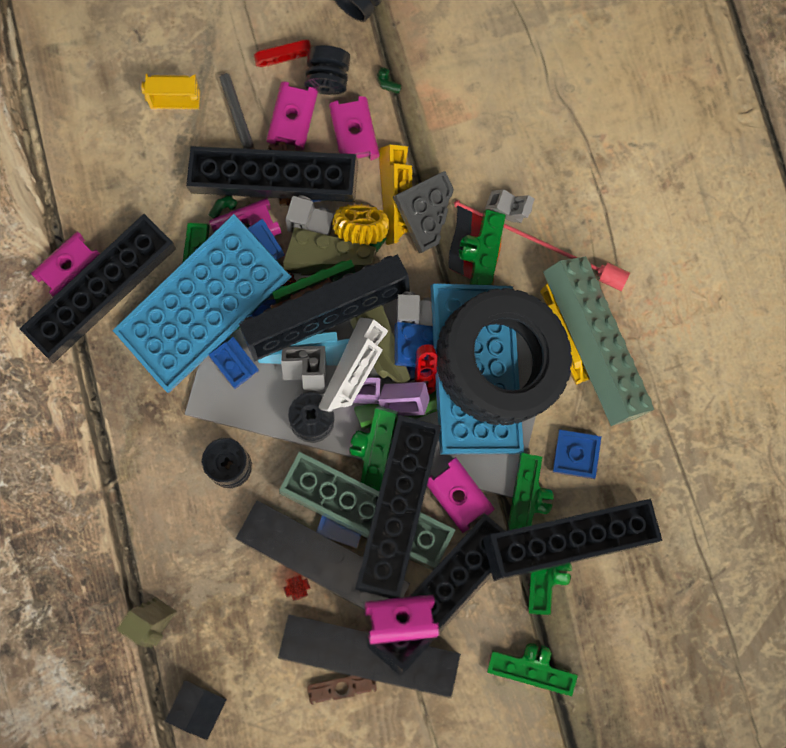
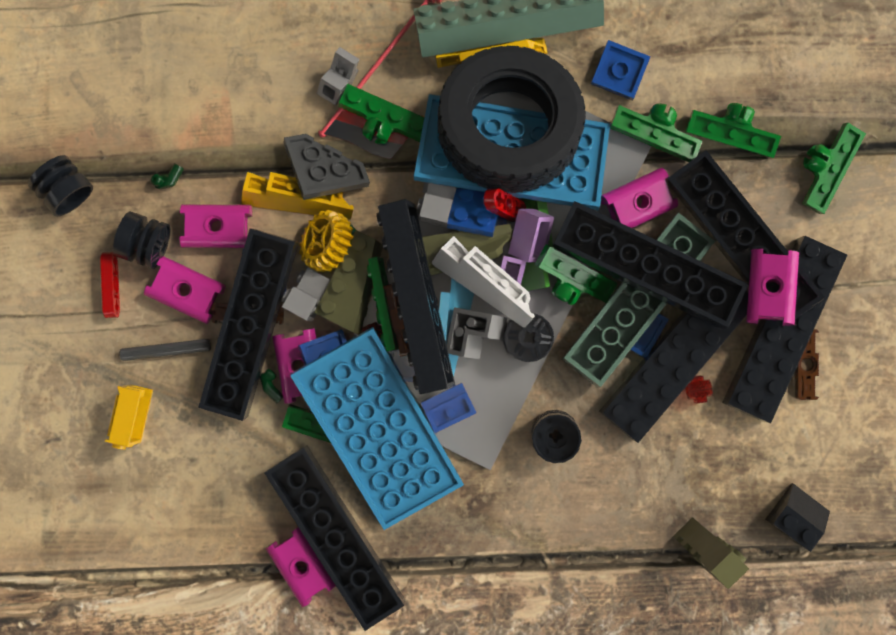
camera: 75 degrees left, 10 degrees up
(572, 539) = (717, 94): black brick -> none

